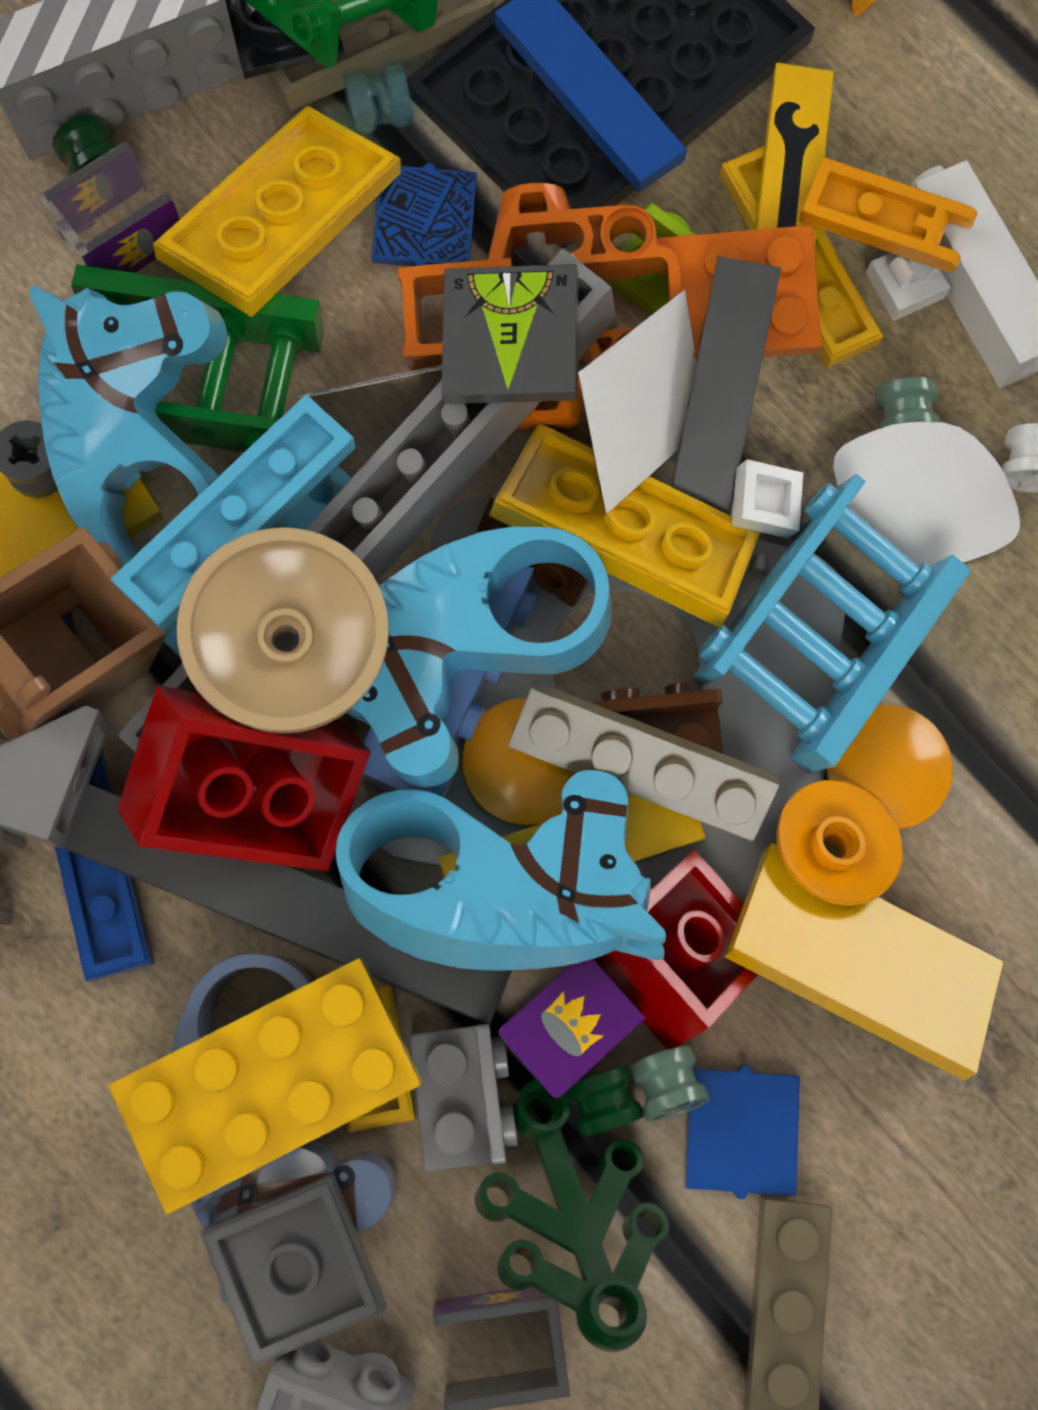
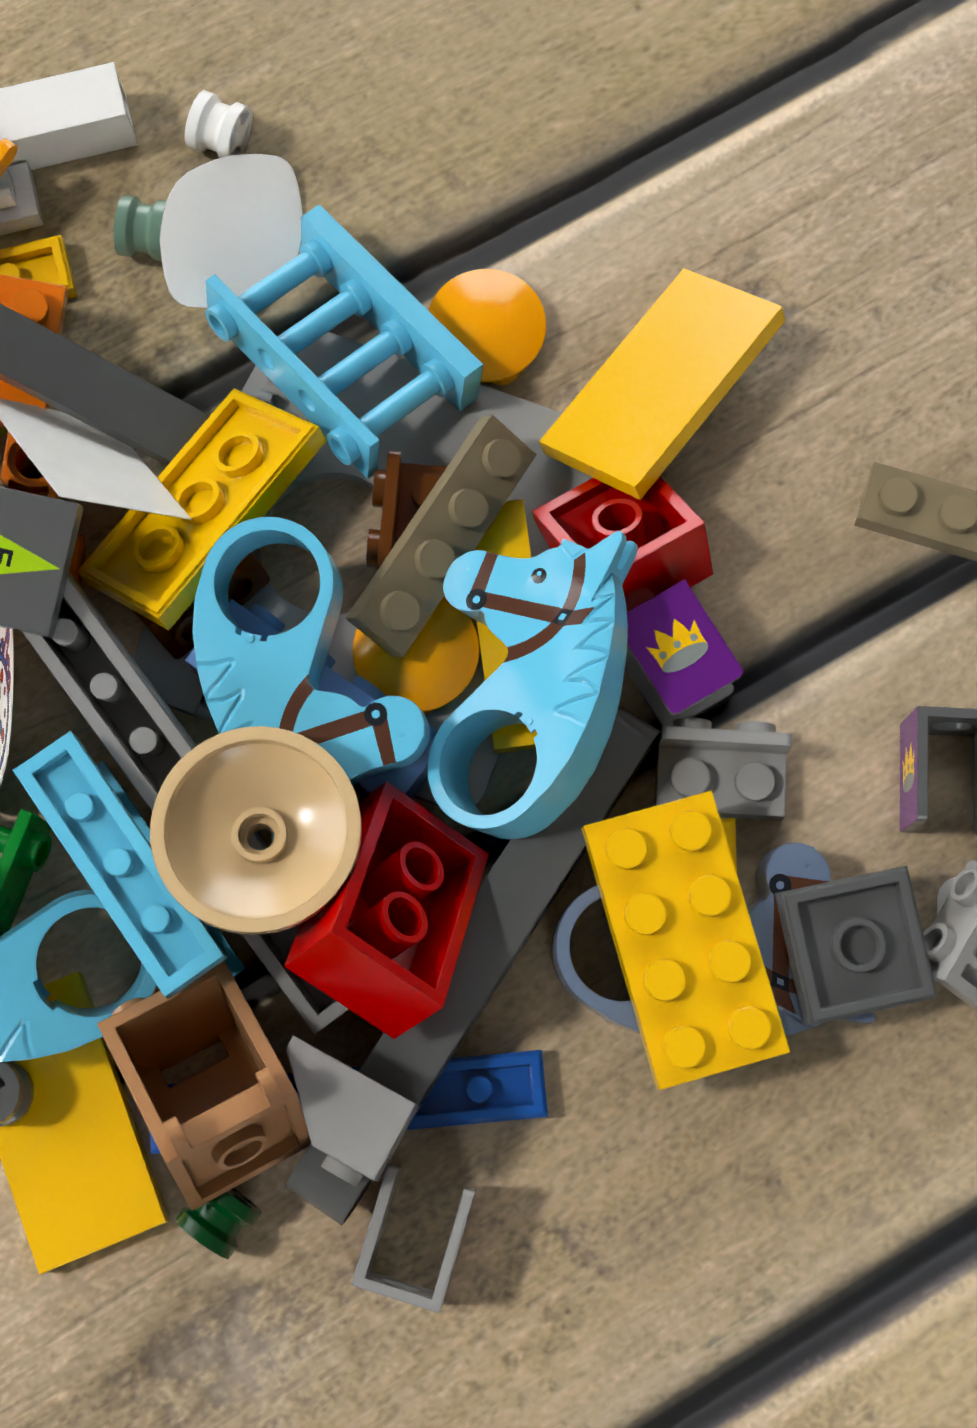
camera: 70 degrees left, 0 degrees up
(577, 1227) = (855, 681): dark green plant -> none
(605, 1100) = (751, 637): dark green wheel -> none
(669, 1083) = (743, 578): sand green wheel -> none
(744, 1133) = (794, 528): blue piece -> none
(767, 499) = (205, 373): white tile -> none
(857, 827) = (550, 361): light orange dish -> none

